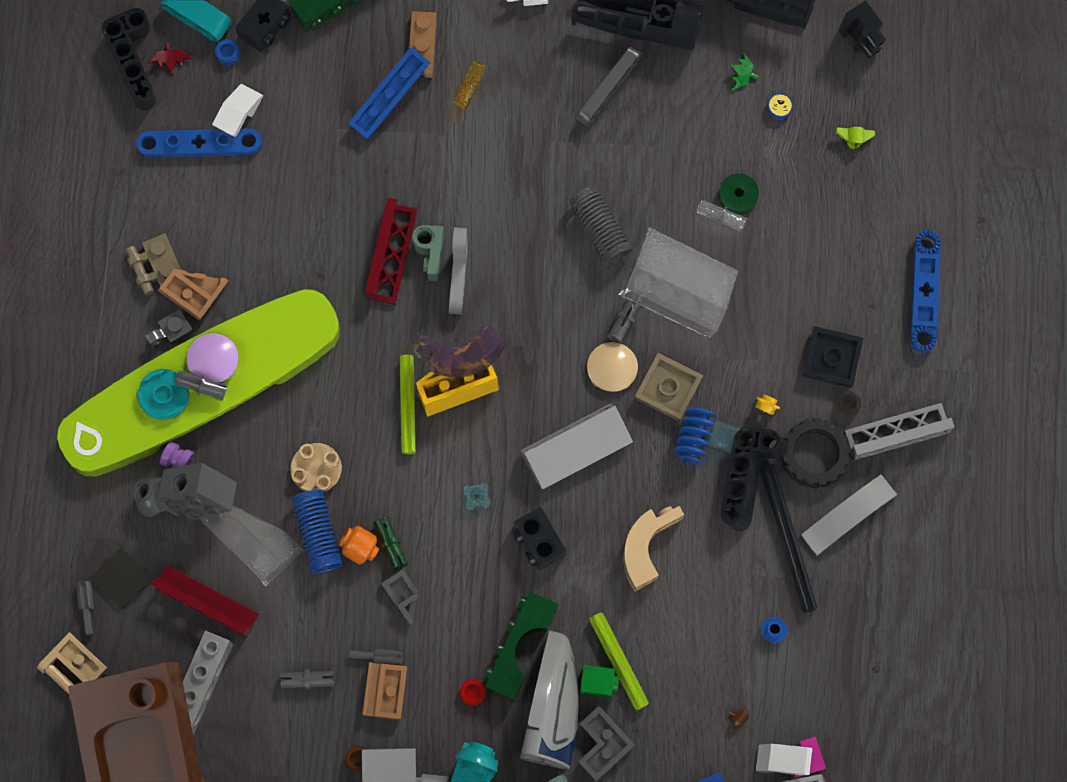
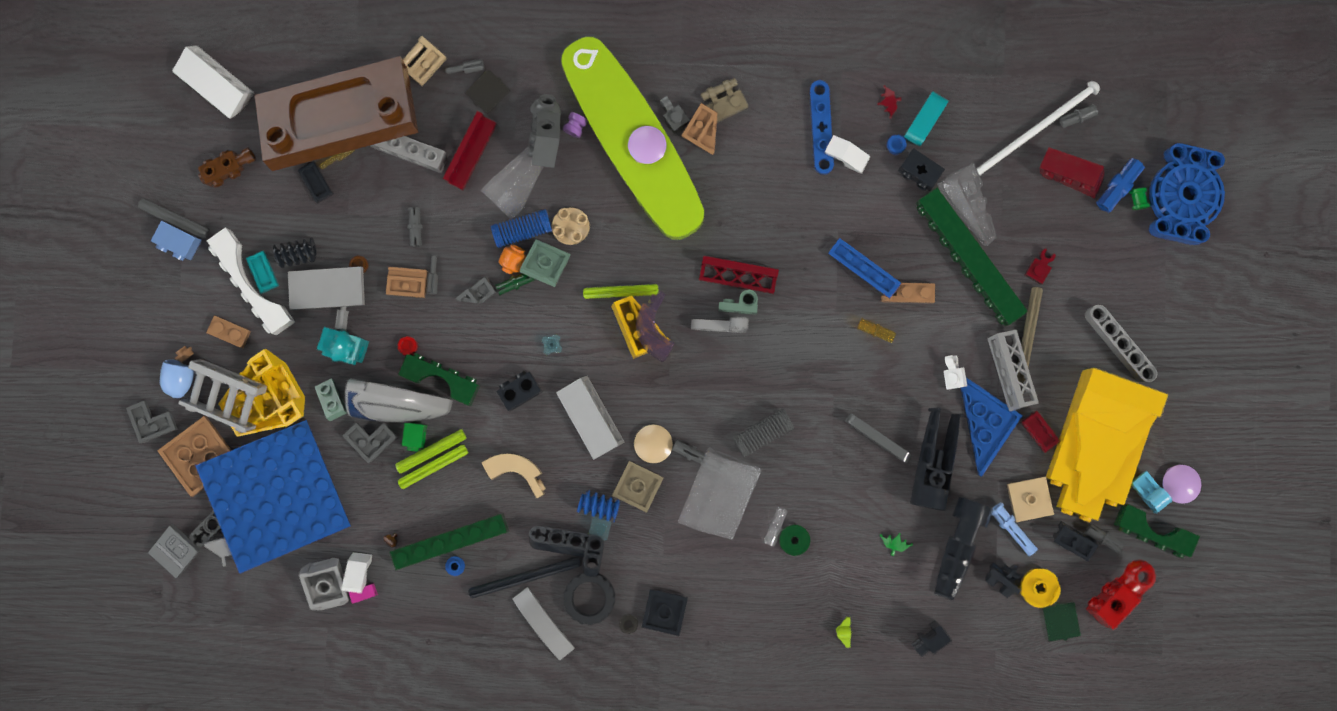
camera: 95 degrees right, 10 degrees up
(130, 62) = (884, 73): black beam -> none
(161, 396) = (619, 111): teal tile -> none
(201, 385) = (625, 137): dark grey axle -> none
(366, 500) = (545, 263): none -> sand green plate
(639, 659) = (433, 466): none -> lime axle
(741, 634) = (449, 541): none -> dark green brick
(767, 404) = (625, 561): yellow plate -> none
(779, 106) = (867, 572): tile -> none
(899, 437) = (600, 663): light grey fence -> none
(925, 309) = (734, 685): blue piece -> none

